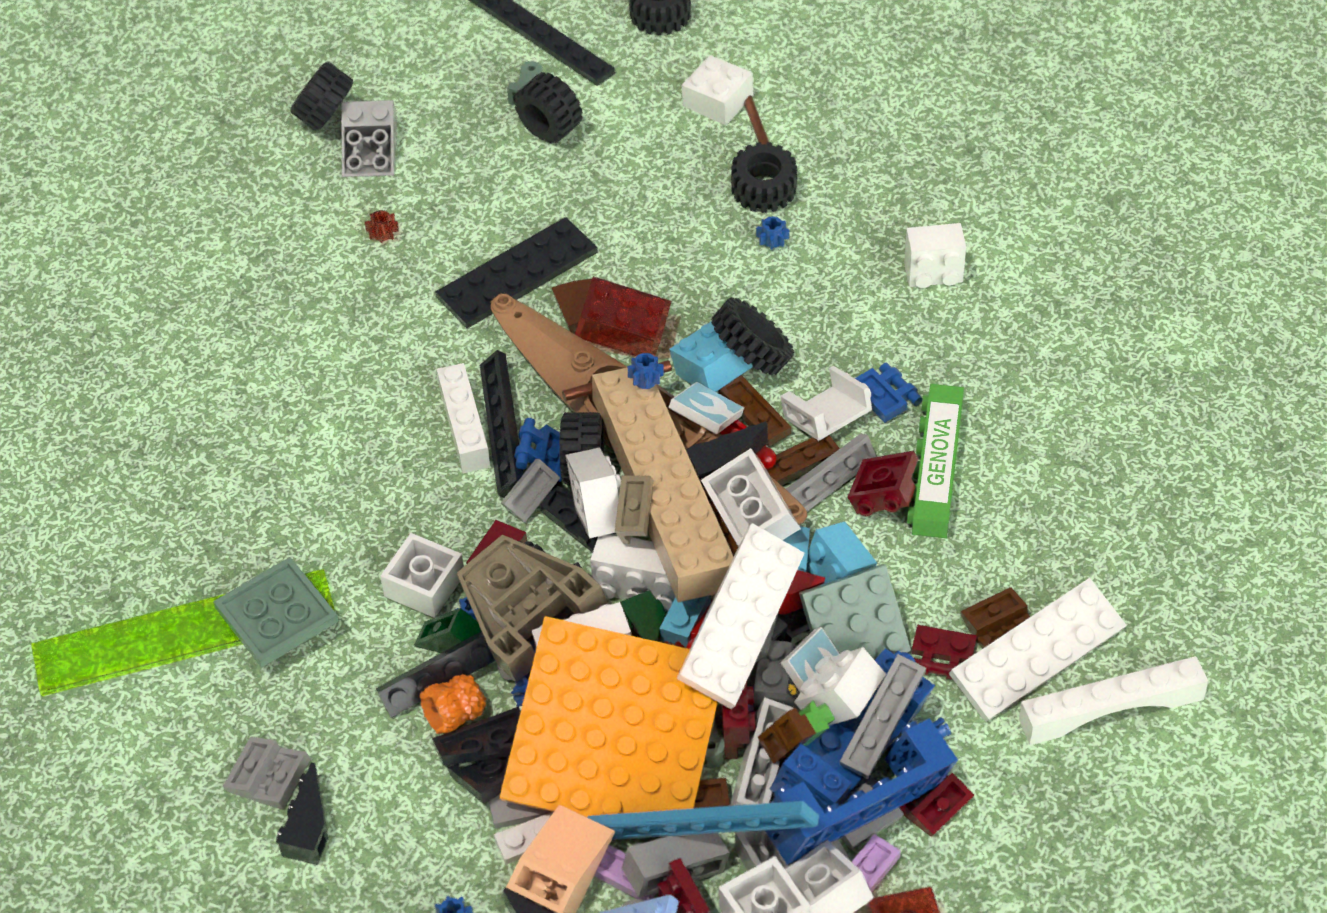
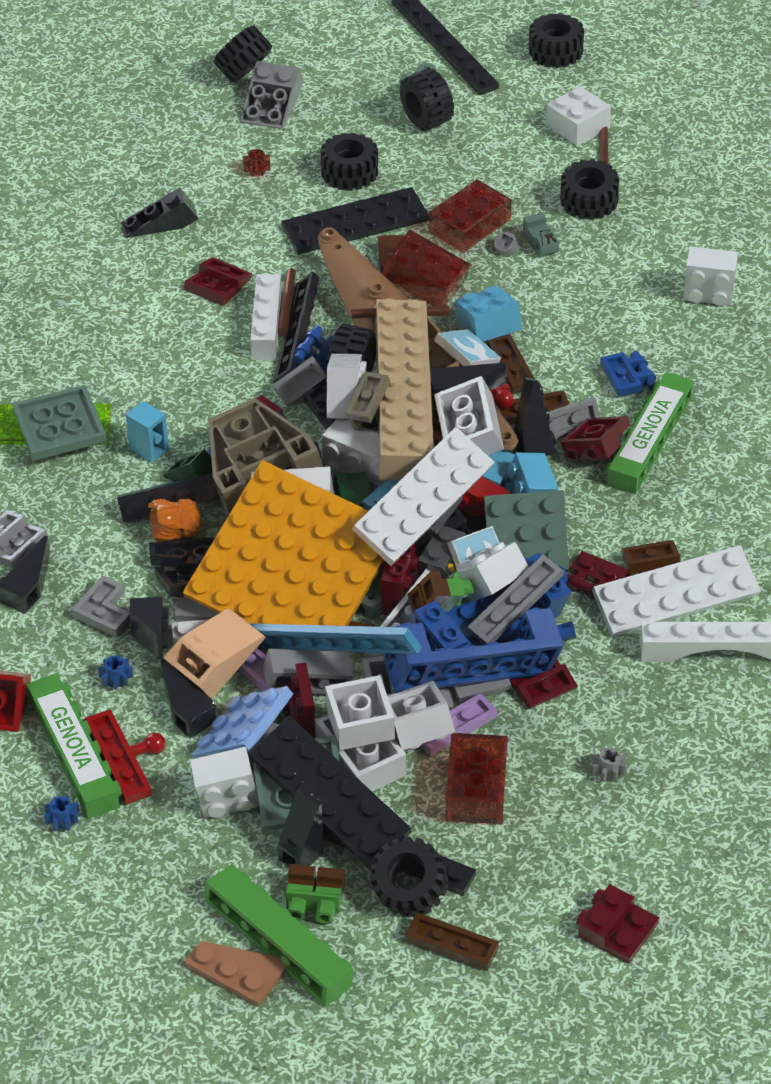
camera: 15 degrees right, 5 degrees down
(300, 315) = (167, 214): none -> black slope
(382, 598) = (147, 431): none -> medium azure brick
(389, 383) = (217, 281): none -> dark red slope
(402, 840) = (98, 607): none -> light grey plate
(422, 575) = (188, 421): white brick -> none
(472, 848) = (150, 623): none -> black slope
(475, 211) = (349, 161): none -> black tyre
(477, 390) = (286, 301): none -> copper bar
(644, 239) = (470, 216): none -> clear red brick
(645, 371) = (418, 302): blue gear -> none
(694, 263) = (505, 244): none -> light grey tile
(728, 245) = (540, 235): none -> sand green leg
(752, 336) = (527, 303): black tyre -> none
(772, 232) = (581, 233): blue gear -> none
(813, 483) = (532, 421): none -> black slope
(831, 408) = (574, 376): white panel -> none
(1047, 885) = (609, 764): none -> light grey gear

